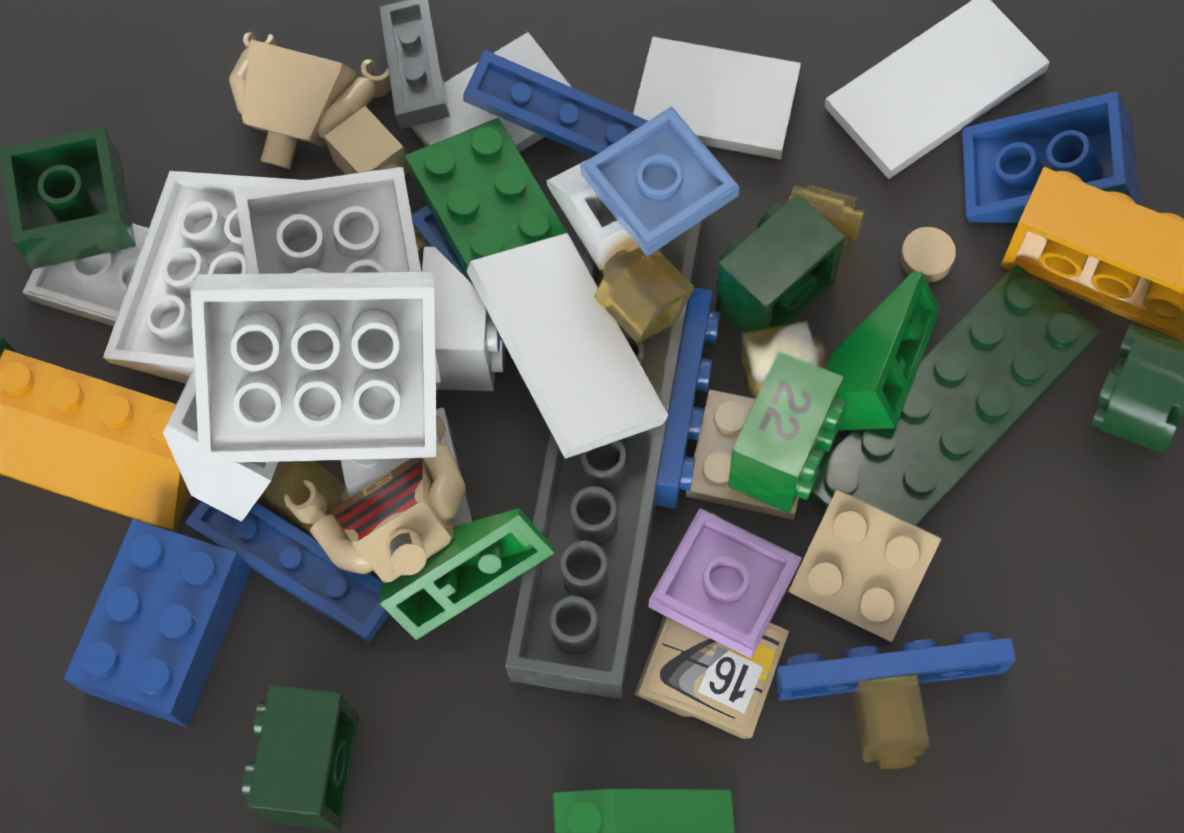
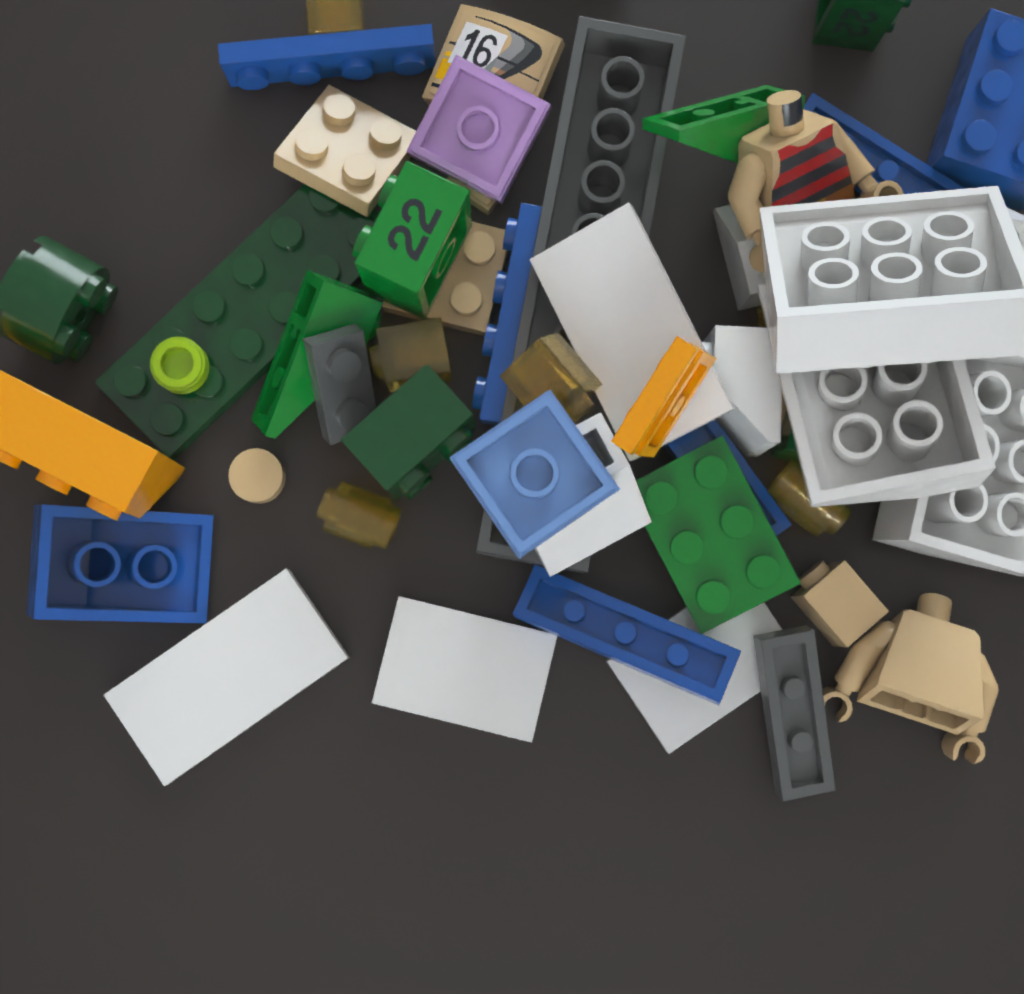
camera: 170 degrees right, 15 degrees up
(547, 245) = (663, 398): none -> light orange plate
(850, 320) = (340, 380): none -> dark grey plate
(1014, 337) = (179, 365): none -> lime tile

